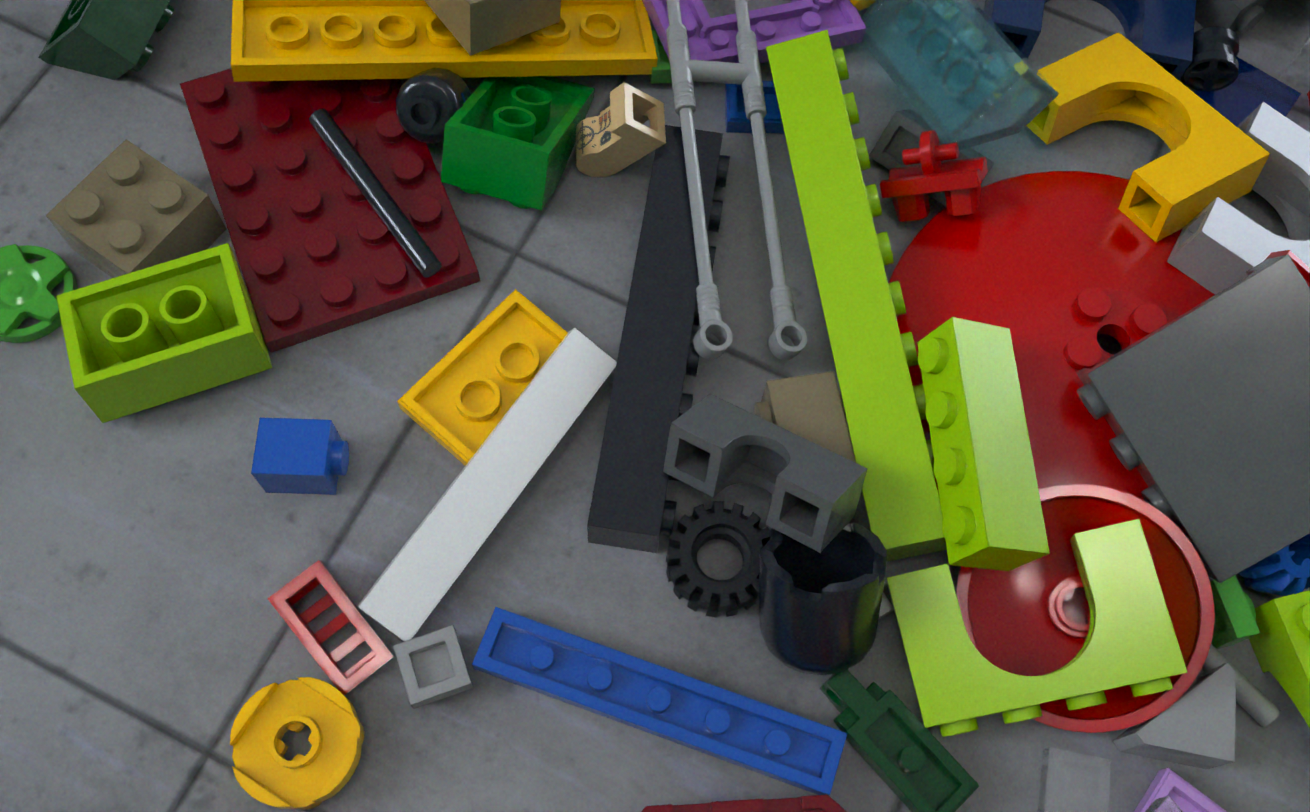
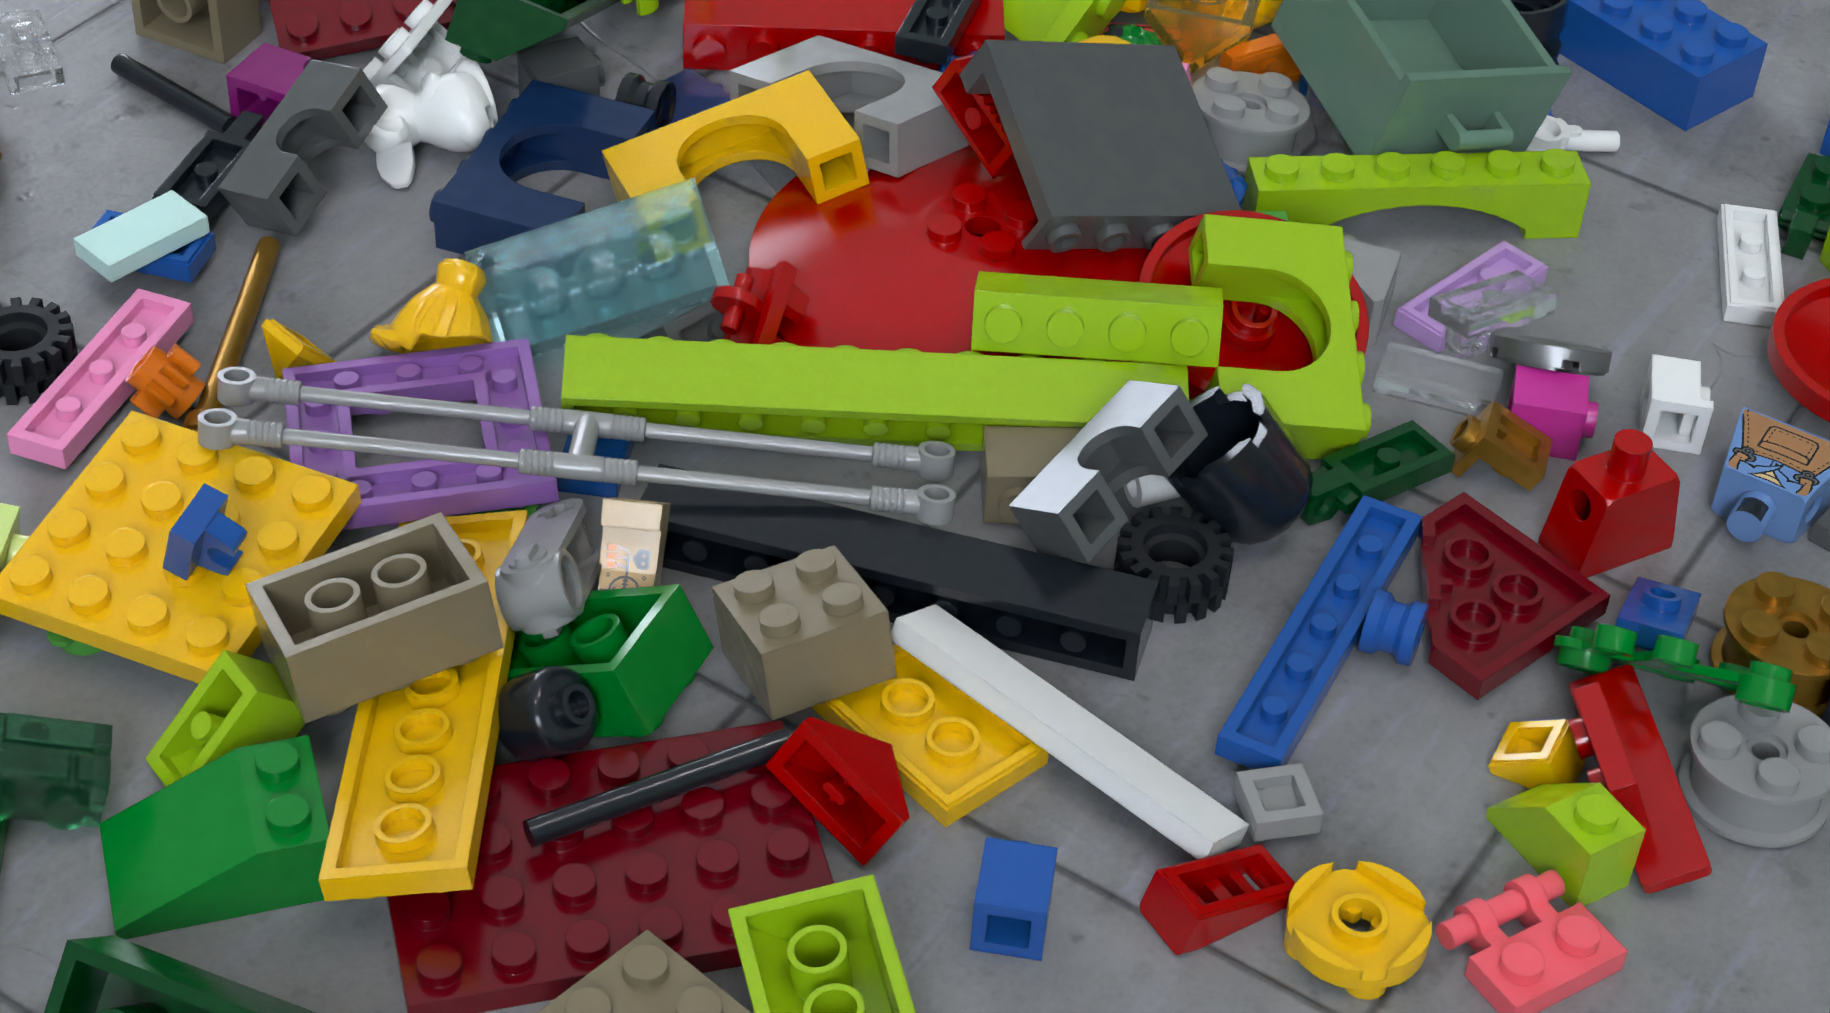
camera: 80 degrees left, 25 degrees down
(397, 320) = (845, 783): none -> red slope
(553, 263) = (804, 631): none -> dark tan brick
(576, 74) = (548, 570): none -> light grey piece
(669, 768) = (1393, 627): none -> blue wheel

